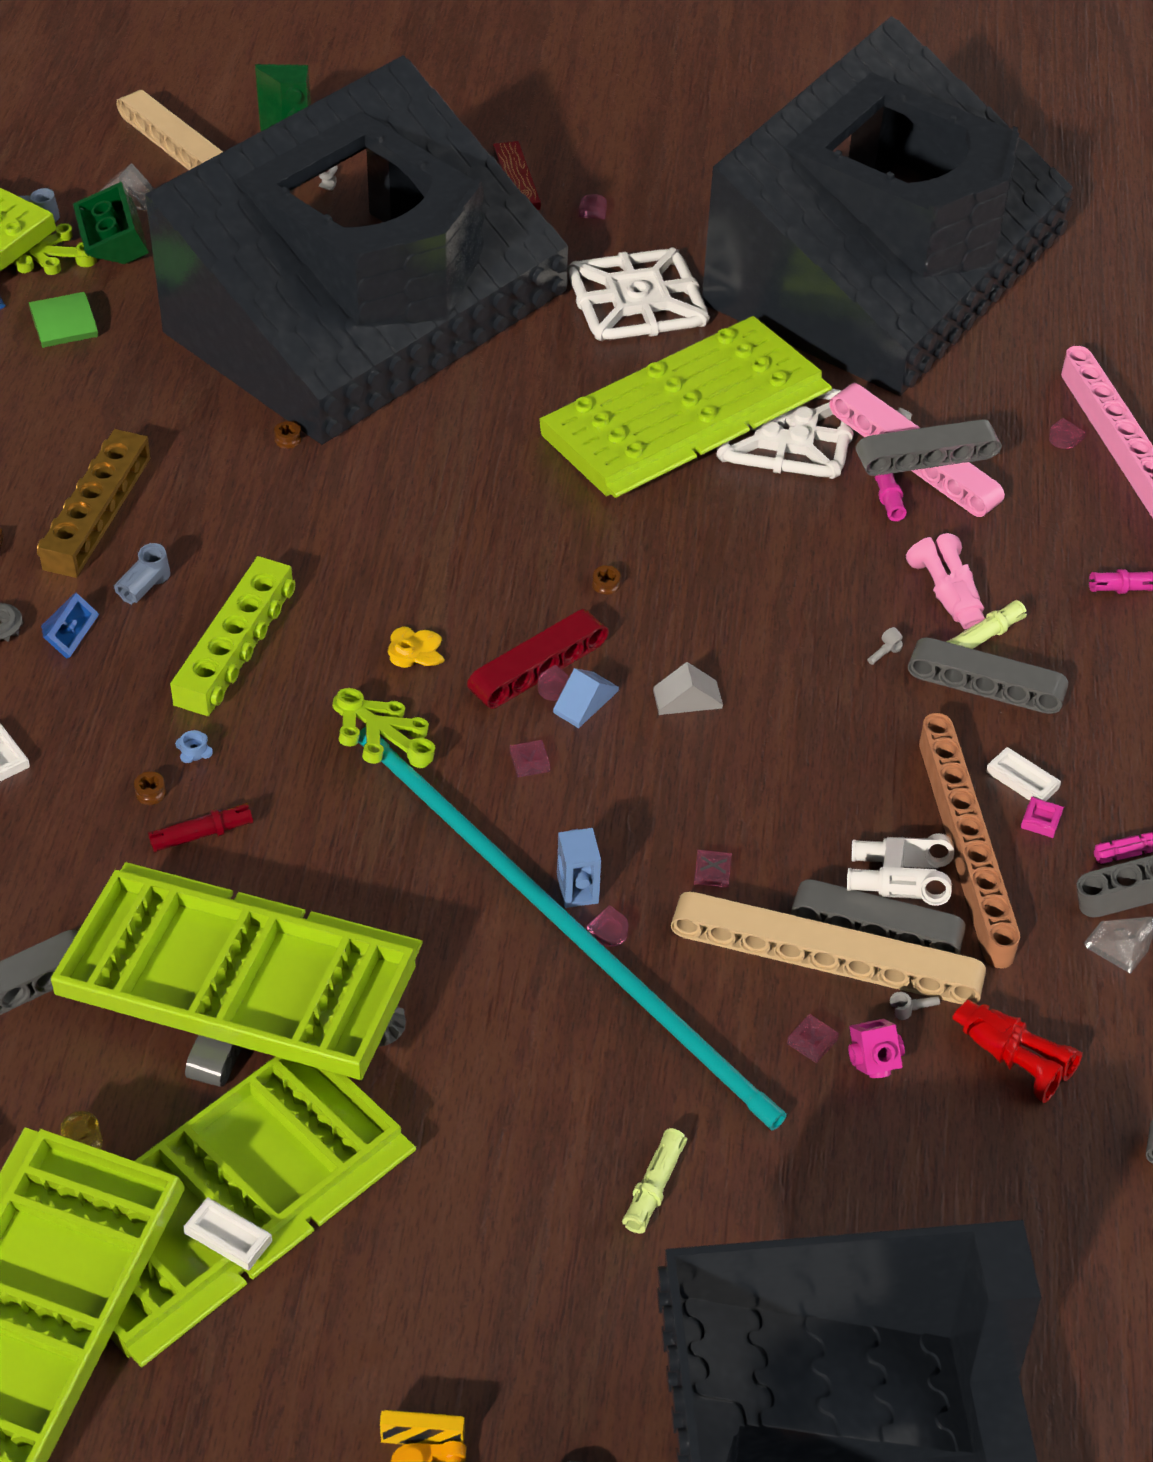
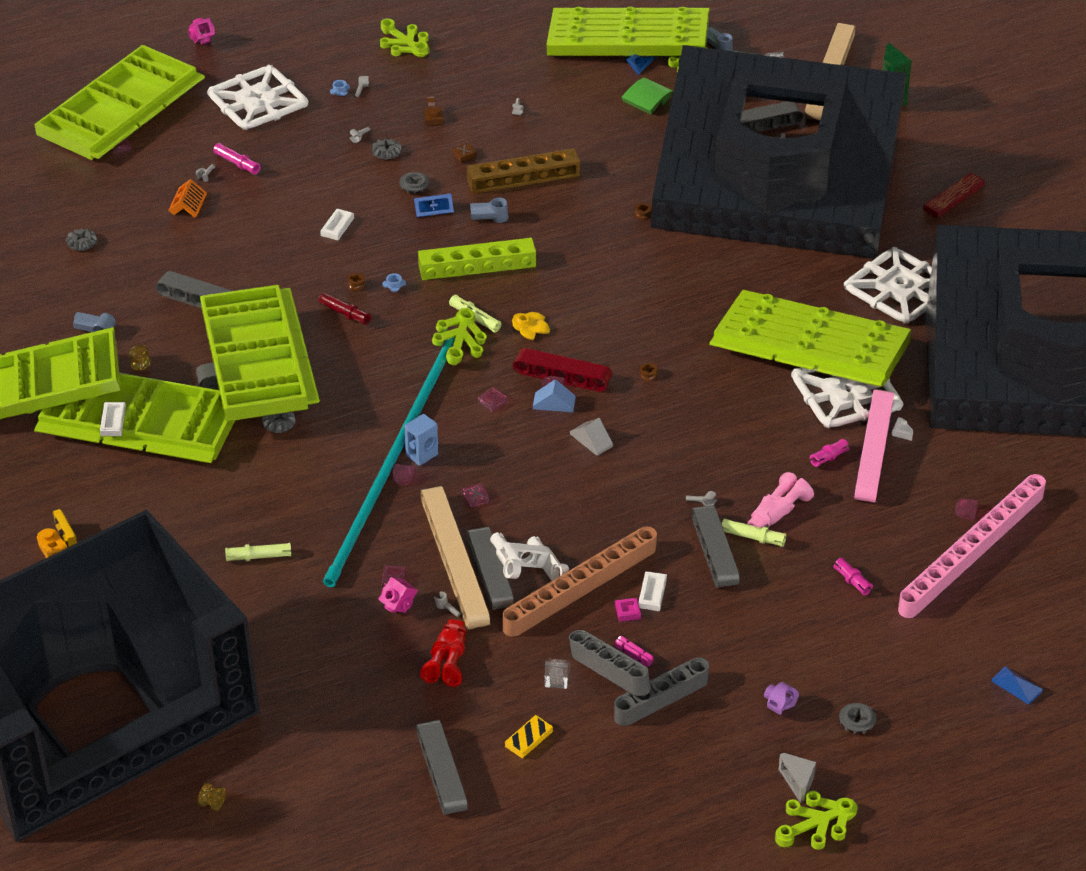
camera: 60 degrees right, 5 degrees down
(326, 692) = (480, 316): none -> yellowish green pin
(928, 447) = (865, 442): dark grey beam -> none

